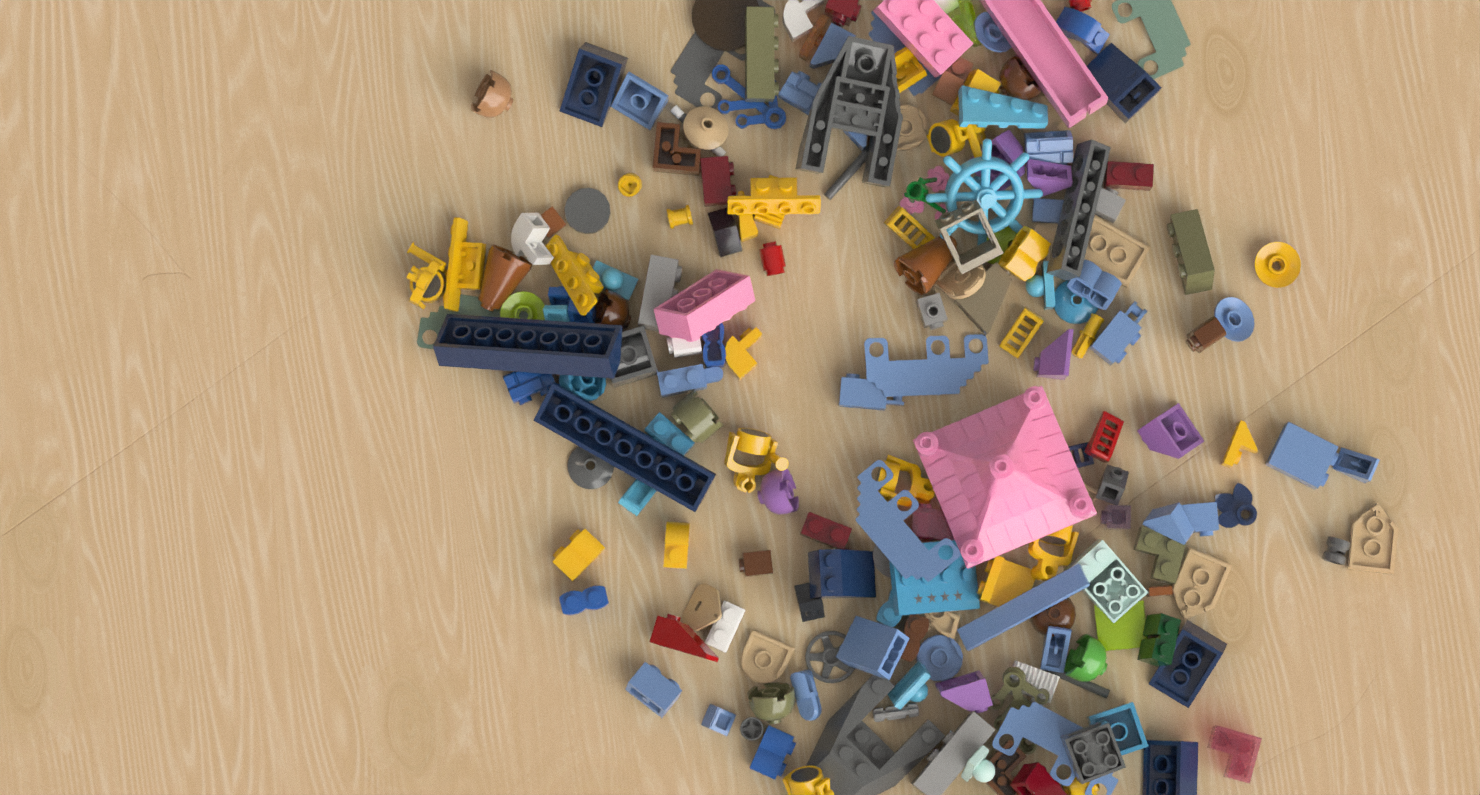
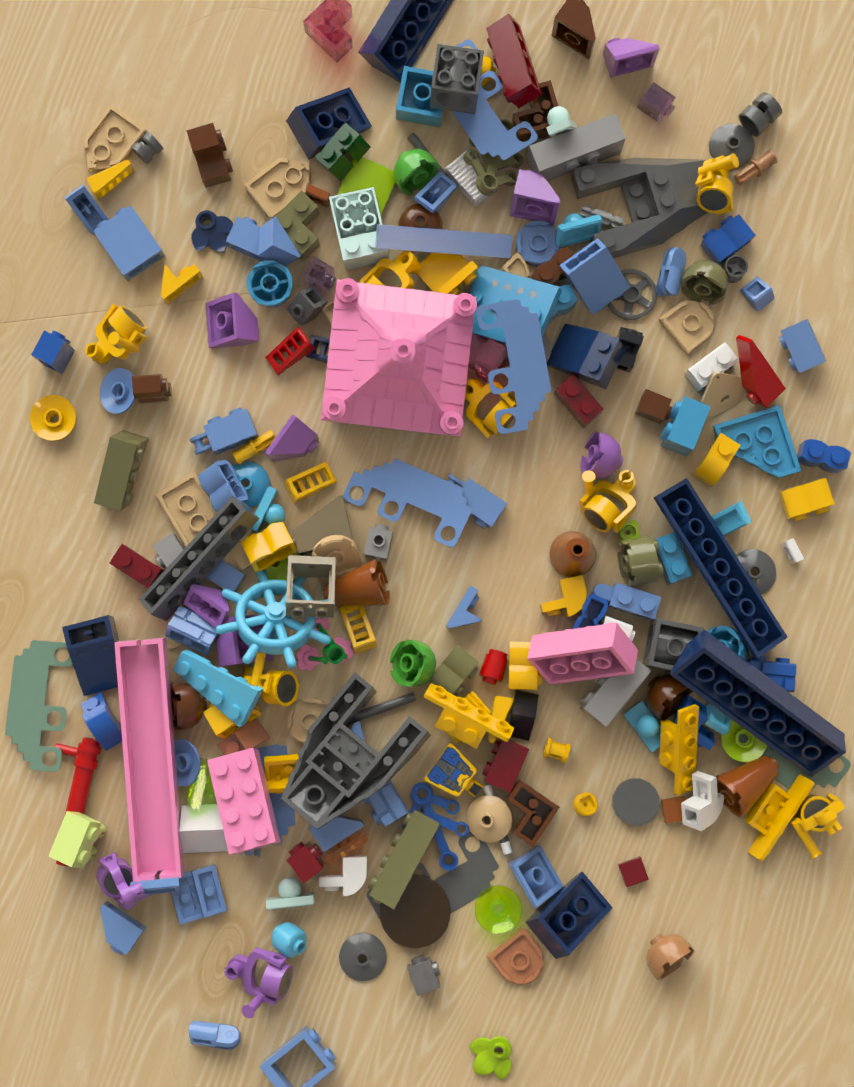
camera: 145 degrees left, 0 degrees up
(557, 150) = (633, 871): none -> dark red tile
(567, 501) = (792, 551): none -> white tile
(616, 26) = (518, 958): none -> nougat tile
(644, 585) = (763, 441): none -> dark azure plate
(656, 44) = (506, 919): none -> clear neon green dish
(712, 440) = (632, 527): none -> lime plate
(720, 557) = (685, 426): none -> dark azure brick
(746, 263) = (521, 672): none -> yellow brick
(757, 149) = (453, 773): none -> torso
(757, 405) = (565, 560): none -> dark orange cone
(805, 236) = (455, 670): none -> olive brick
(824, 287) = (461, 616): none -> medium blue slope
(844, 221) = (412, 663): none -> bright green cylinder
(1155, 484) = (270, 284): none -> dark azure cylinder
(1261, 380) = (127, 325): none -> yellow piece
(1275, 572) = (208, 151): none -> reddish brown brick
(1309, 321) = (53, 351): none -> blue brick
(1355, 499) = (108, 179): none -> yellow slope

